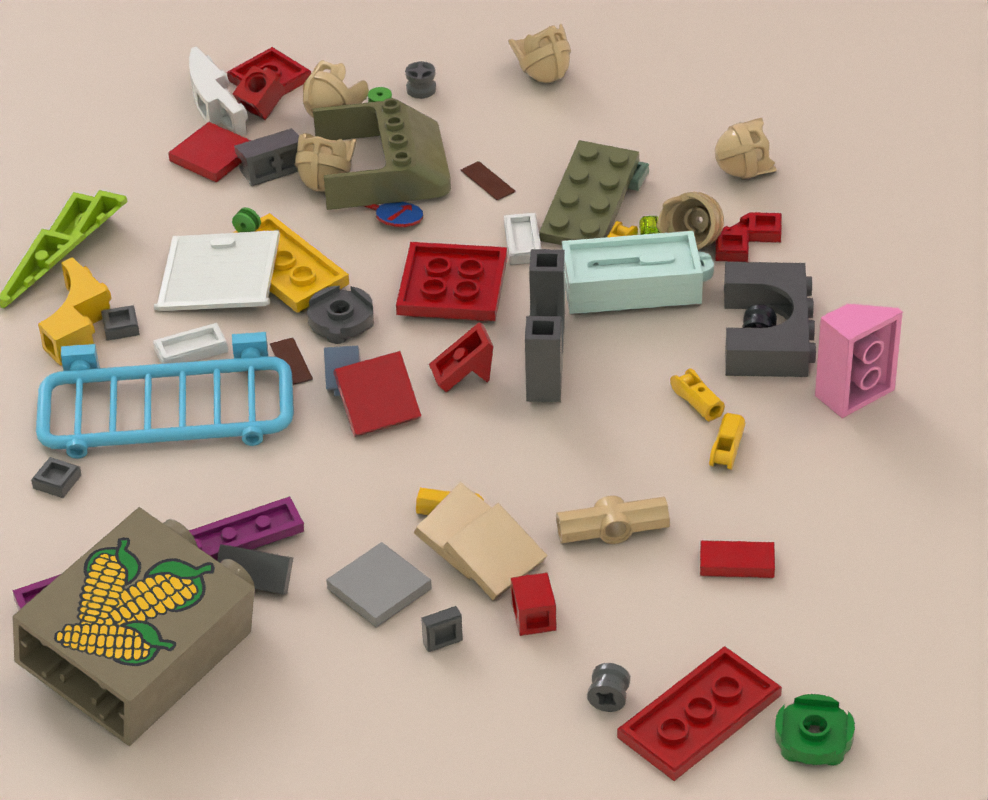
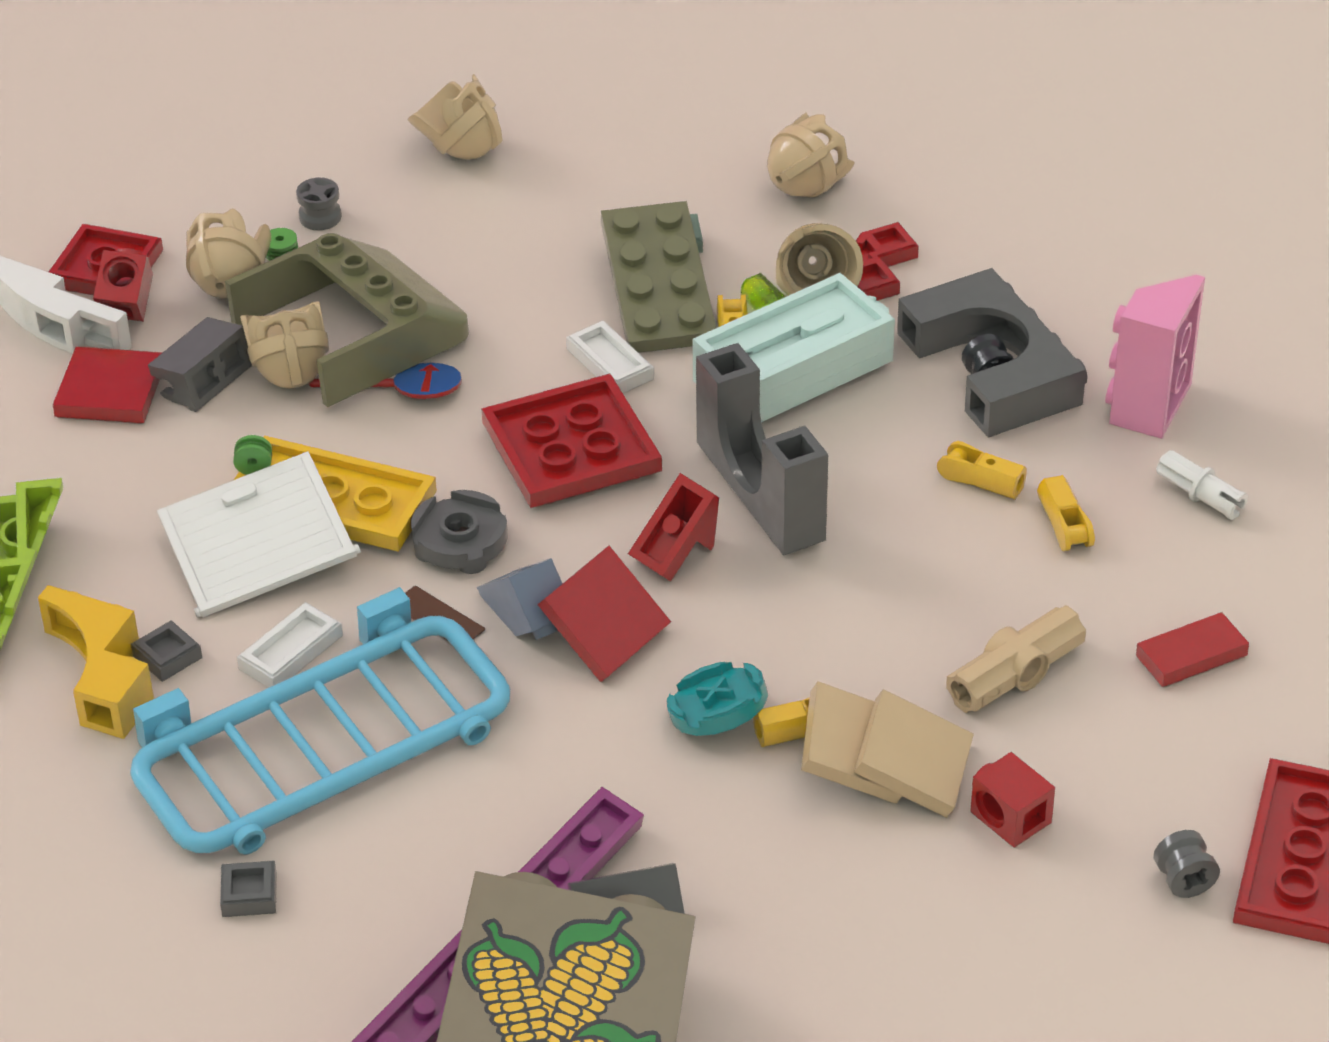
camera: 30 degrees left, 0 degrees up
(379, 584) = (794, 854): light grey tile -> none
(406, 472) = (717, 698): none -> teal tile
(442, 628) = (929, 876): dark grey tile -> none
(488, 180) = (502, 301): reddish brown sticker -> none
(834, 456) = (1201, 484): none -> white axle

